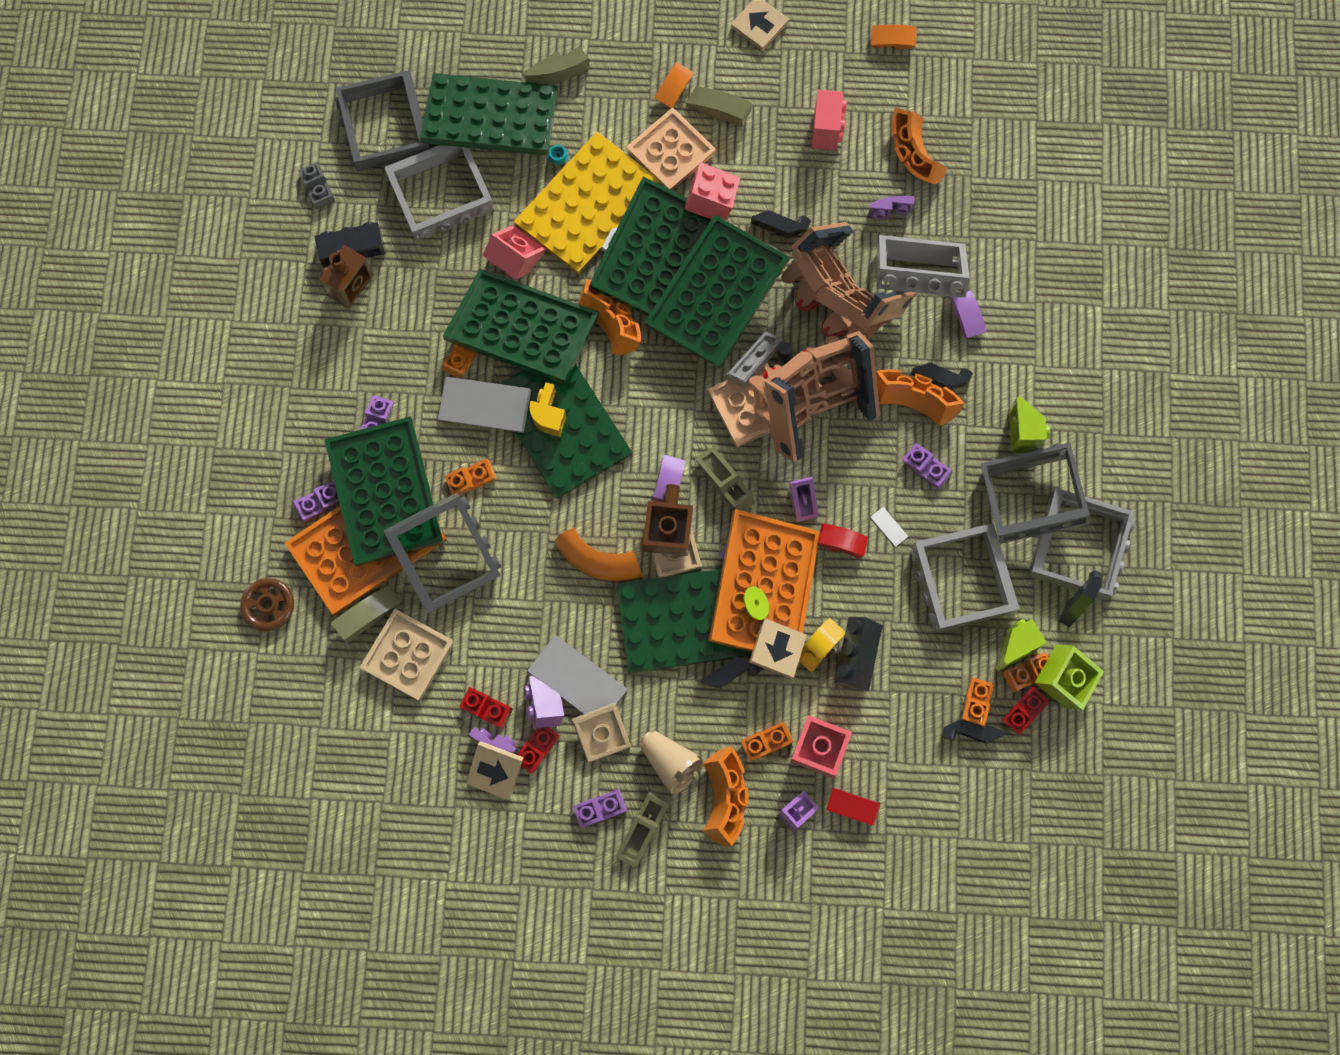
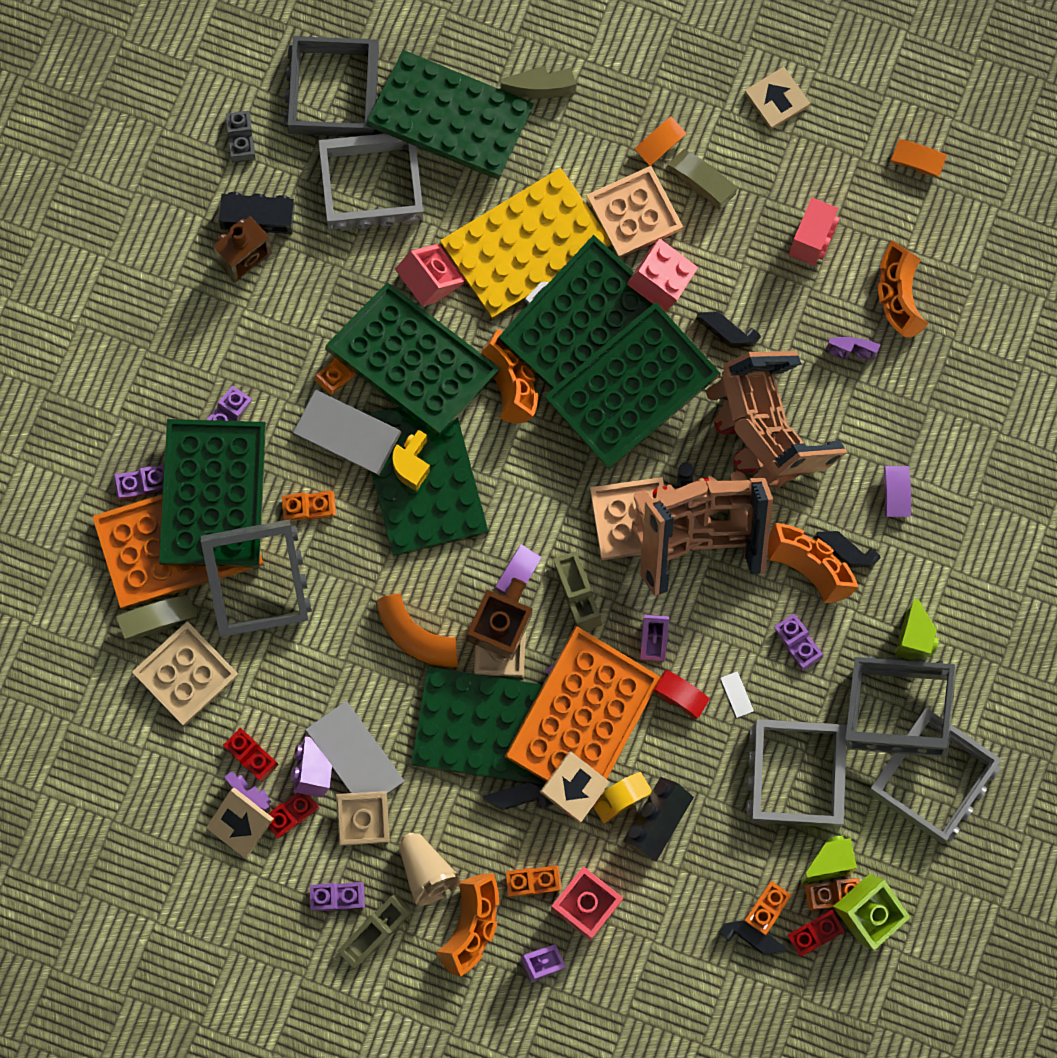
camera: 10 degrees right, 0 degrees up
(264, 586) = (35, 568): reddish brown plate -> none
(558, 149) = (510, 175): teal plate -> none
(754, 359) = (651, 470): light grey tile -> none
(756, 603) = (566, 732): lime piece -> none
(853, 806) = (601, 976): red slope -> none
(922, 252) = (870, 408): light grey window -> none
(1082, 599) = (914, 834): black piece -> none

